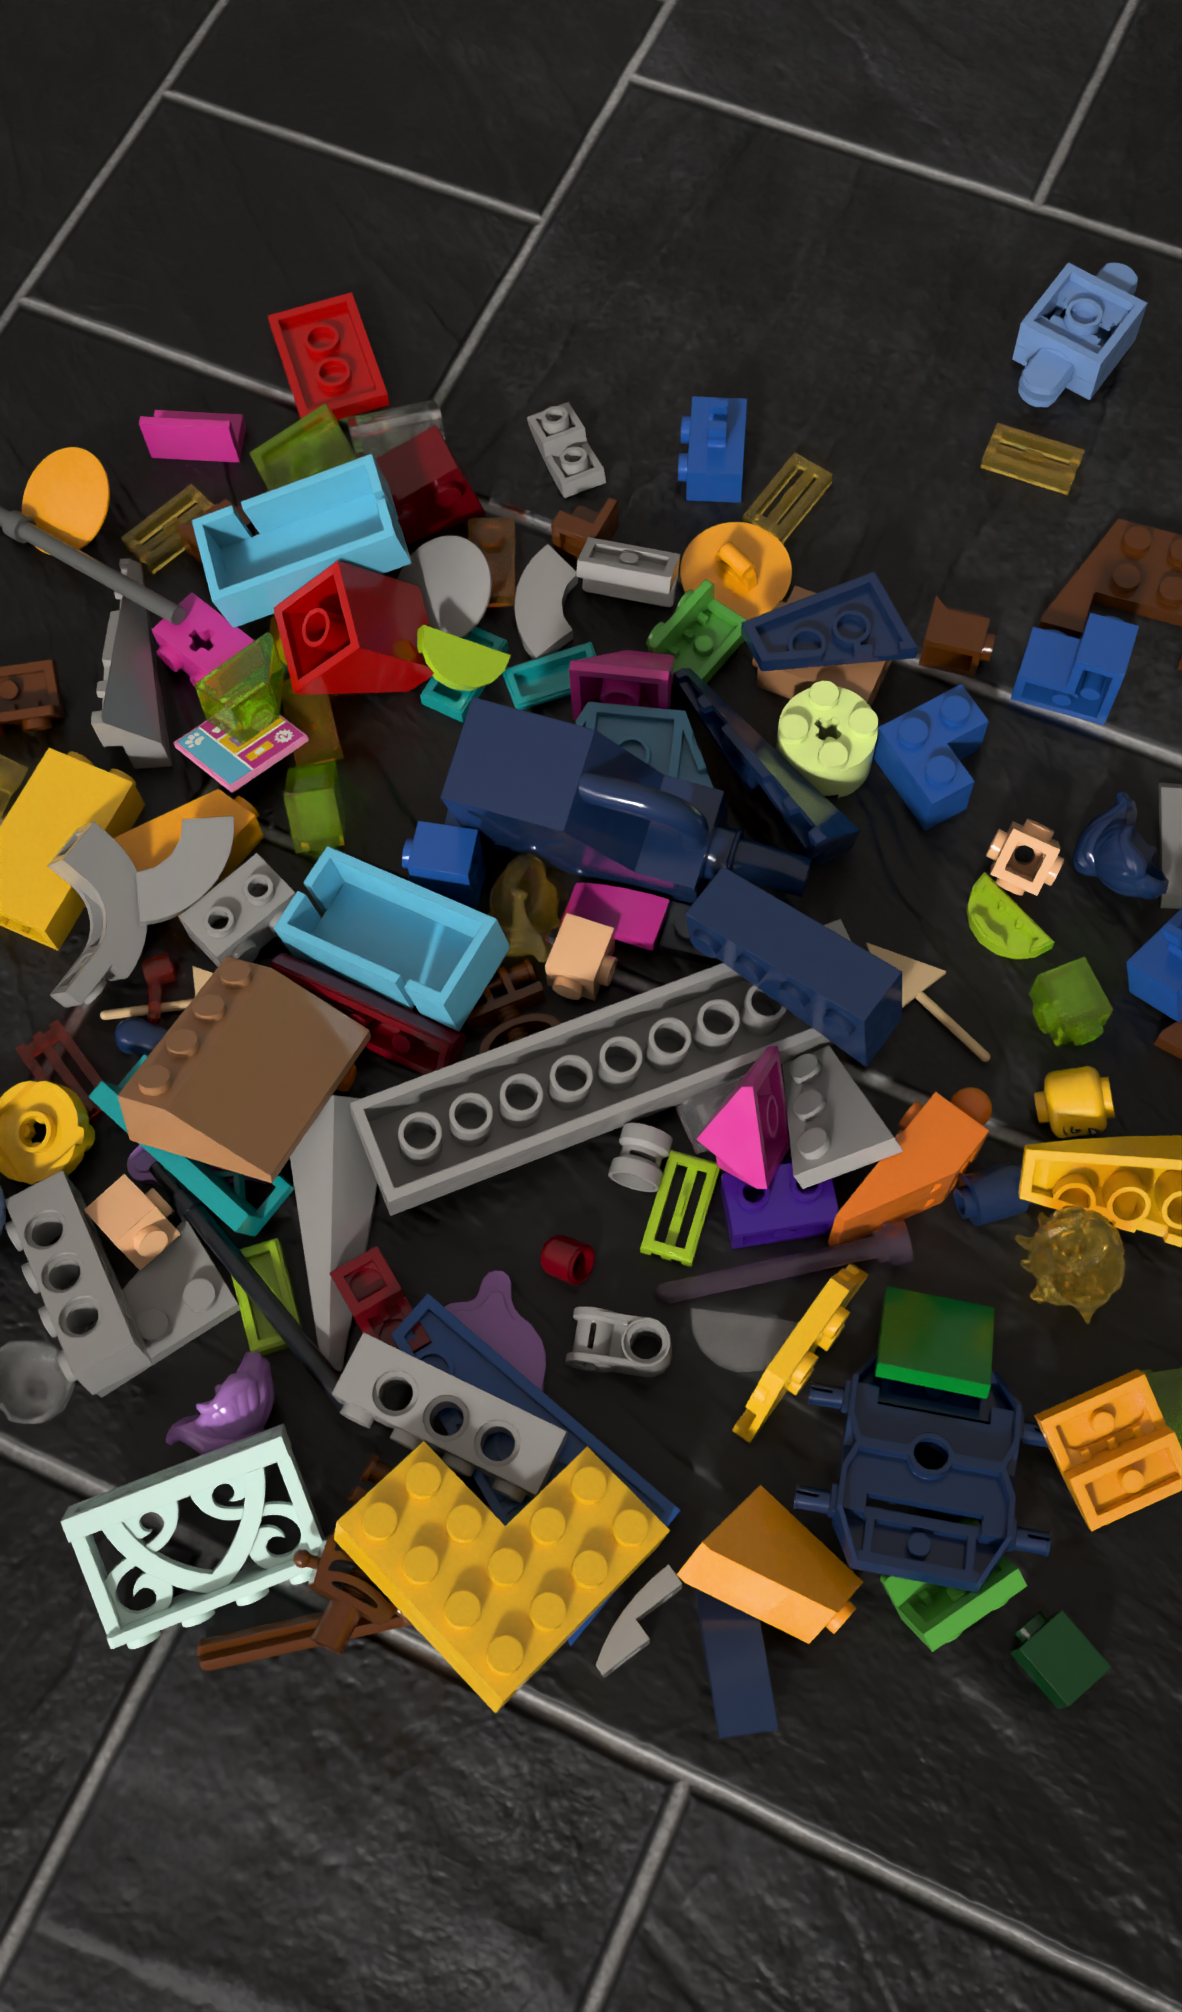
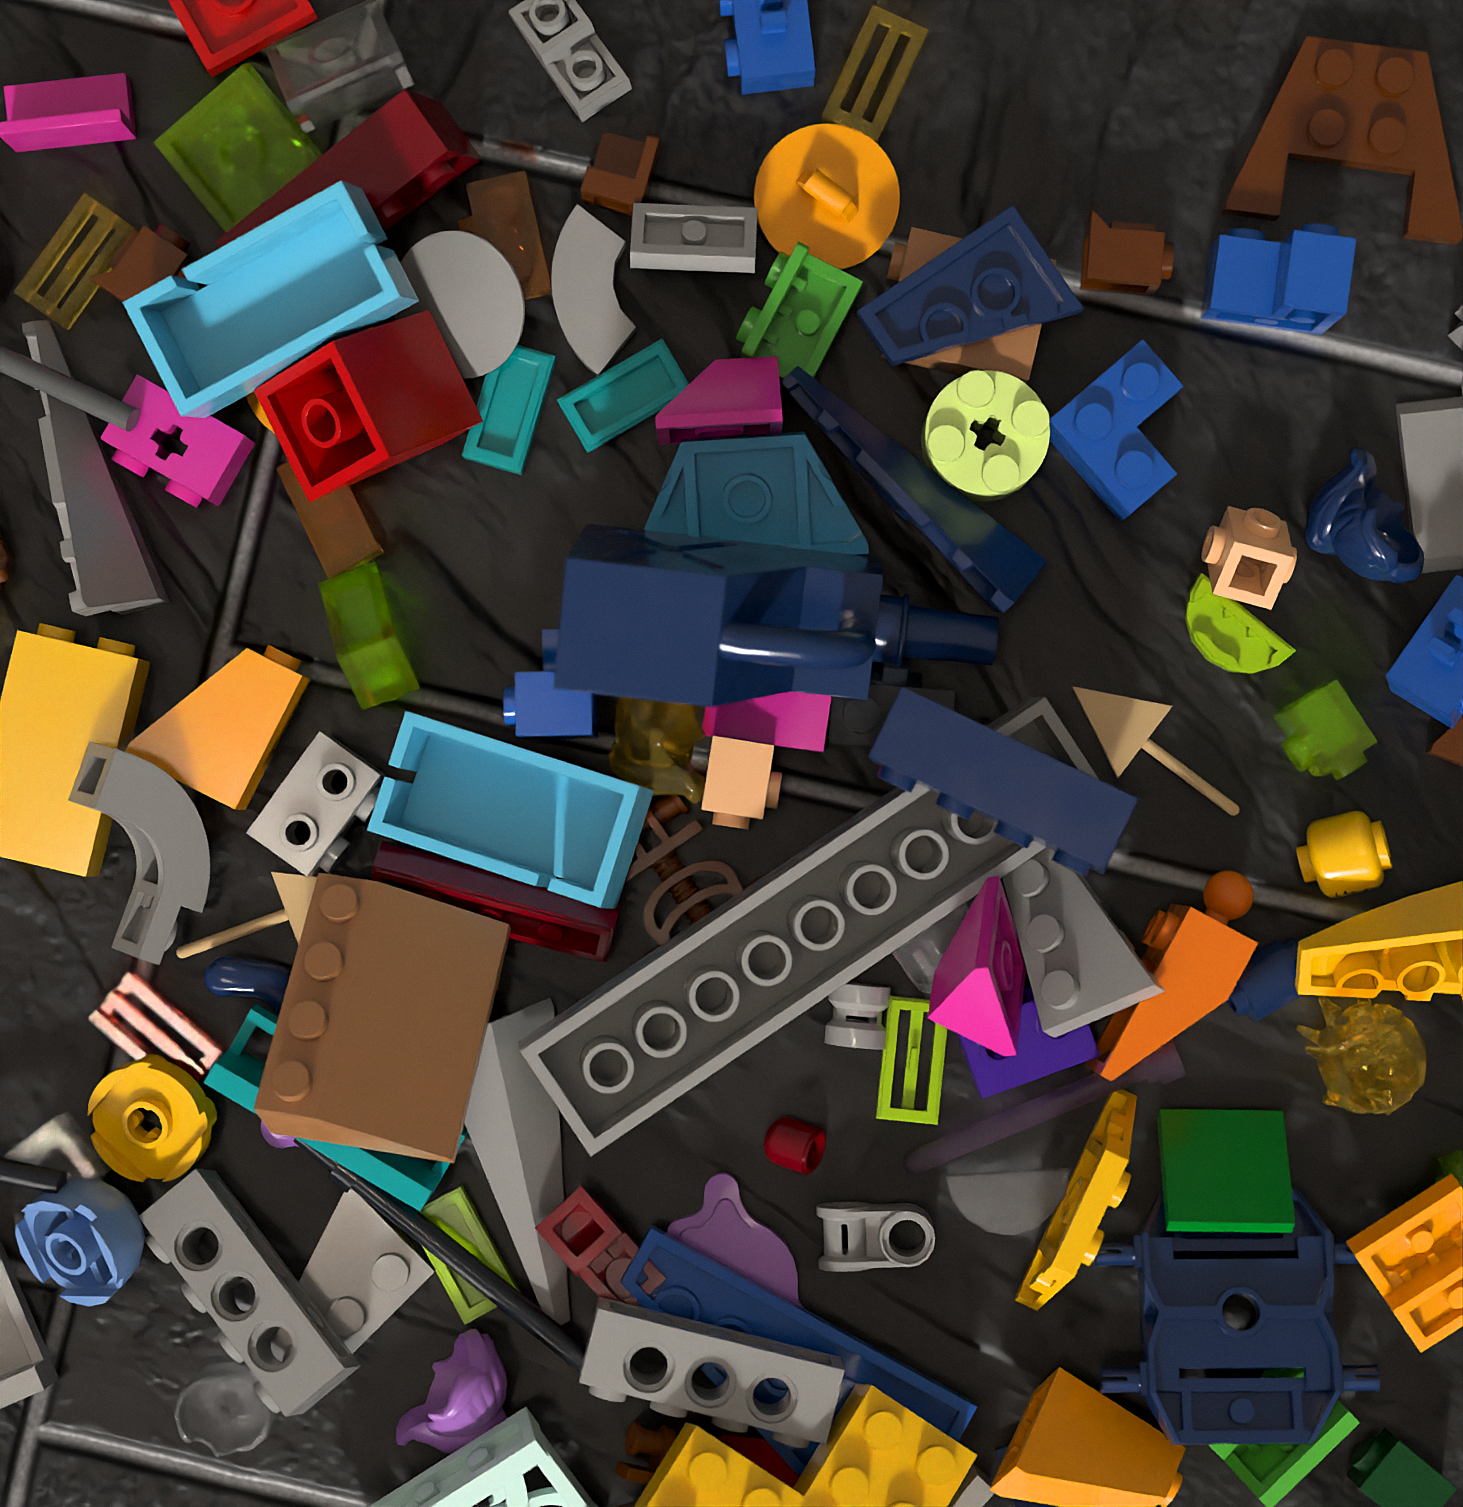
camera: 15 degrees left, 20 degrees up
(134, 1220) = (293, 1207): light nougat brick -> none
(157, 972) = (231, 888): clear red hand -> none
(188, 872) = (244, 772): light grey tile -> none
(238, 763) = (254, 568): piece -> none
(244, 691) = (245, 503): clear neon green slope -> none
(458, 661) = (507, 413): lime tile -> none

